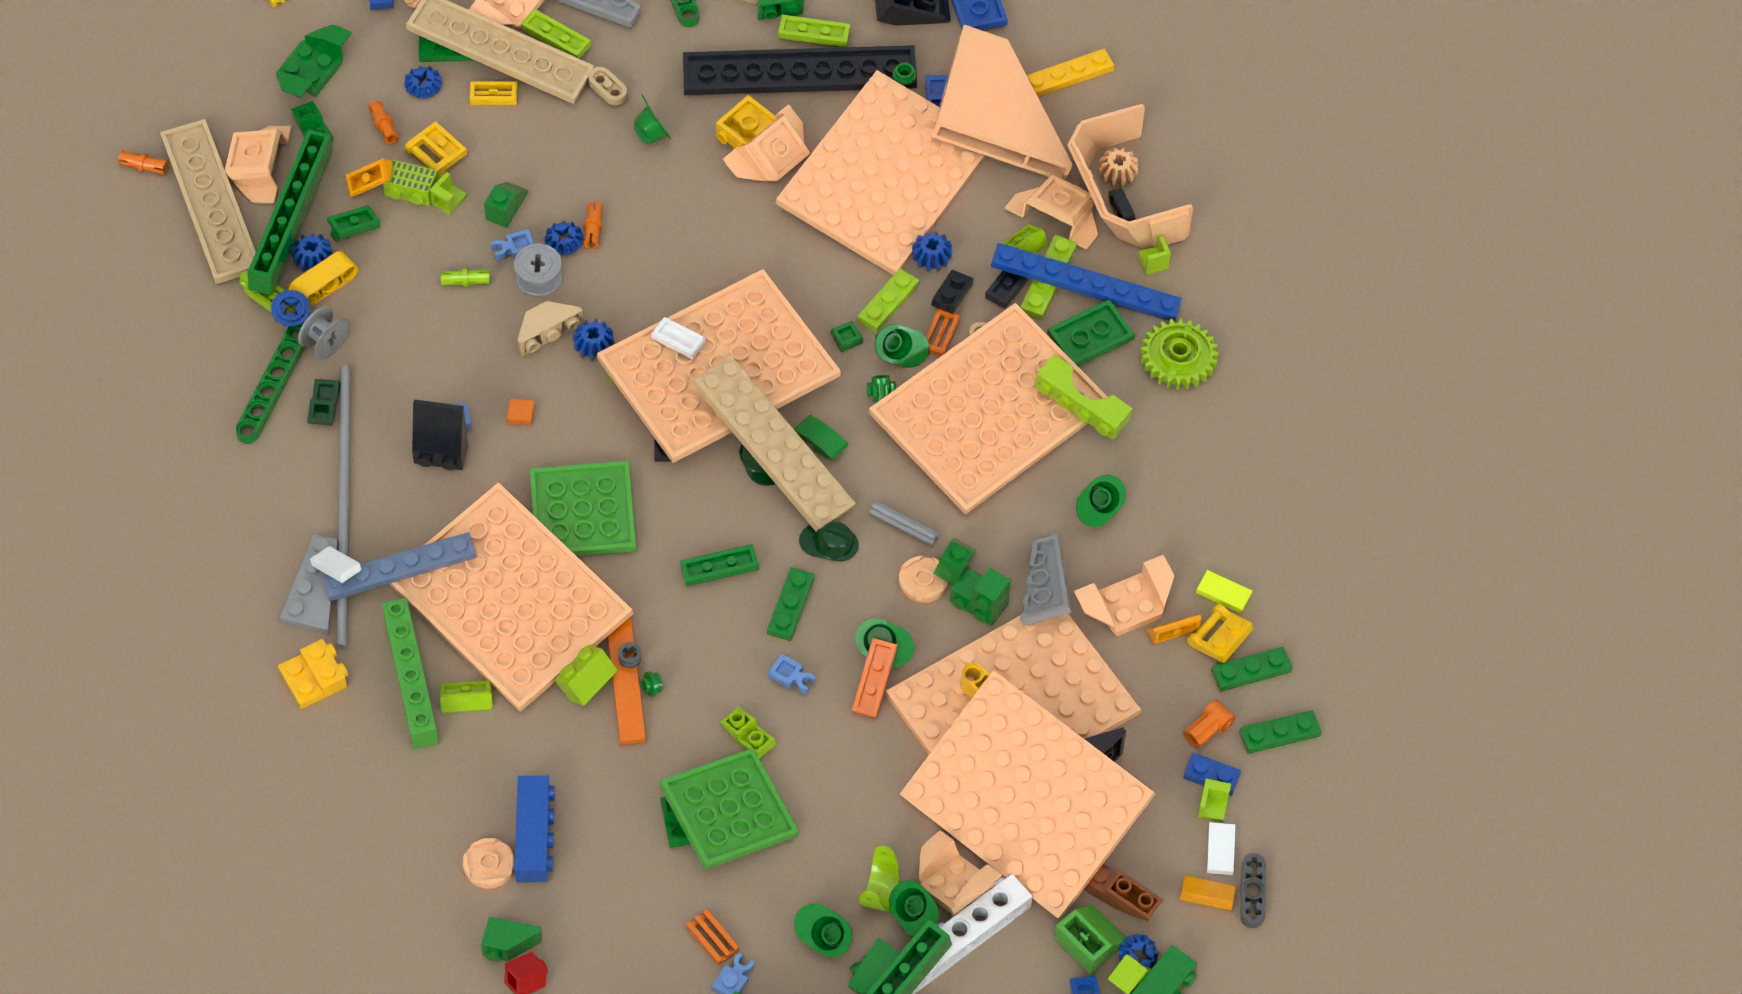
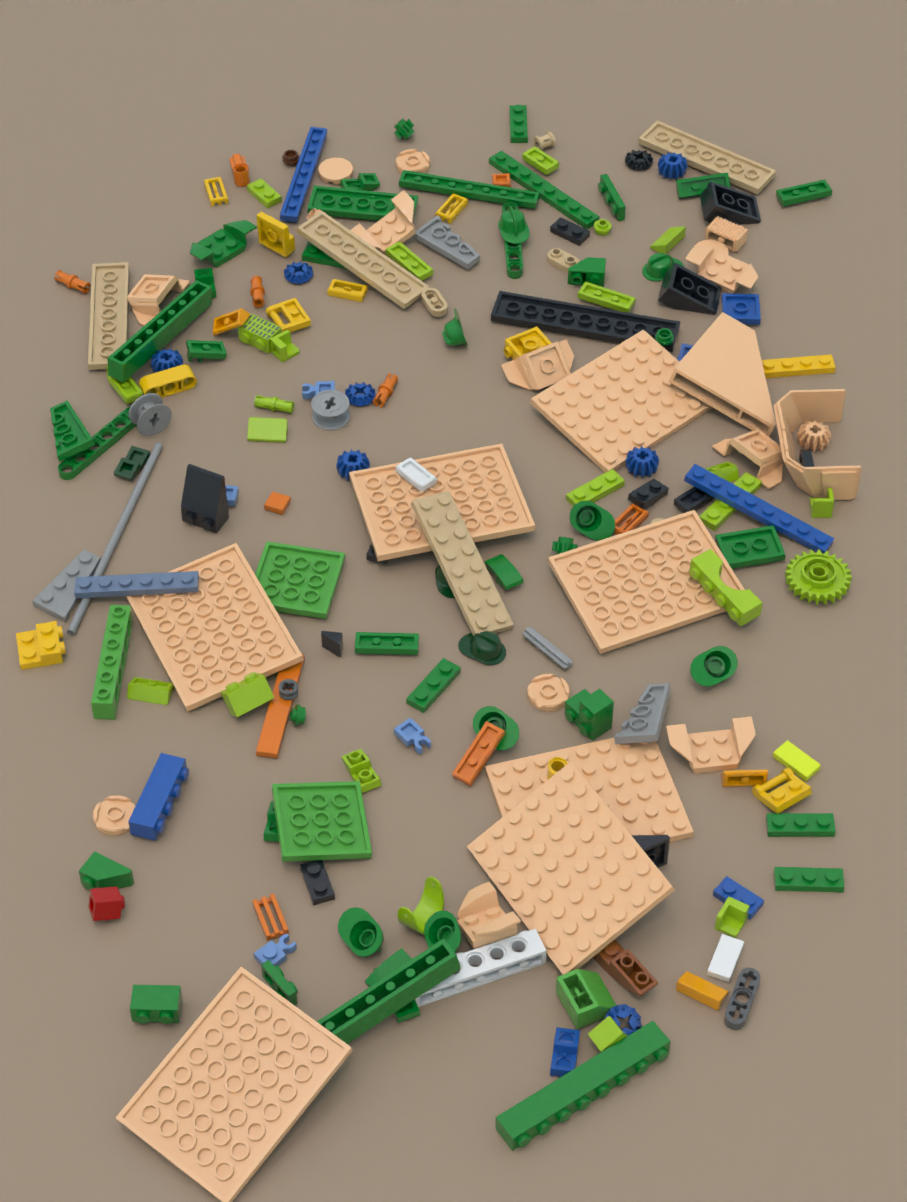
camera: 20 degrees right, 10 degrees down
(232, 380) = (69, 431): none -> green wing
(291, 299) = (136, 387): blue gear -> none
(335, 564) = (87, 570): white tile -> none
(378, 38) = (274, 235): none -> yellow plate
(471, 315) = (267, 429): none -> lime slope
(504, 203) = (323, 361): green slope -> none
(546, 324) = (320, 447): tan slope -> none
(656, 580) = (332, 642): none -> black slope
(748, 881) = (317, 882): none -> black plate
(846, 336) = (552, 507): green tile -> none
(954, 561) = (576, 680): green slope -> none
(1213, 719) = (753, 854): orange piece -> none

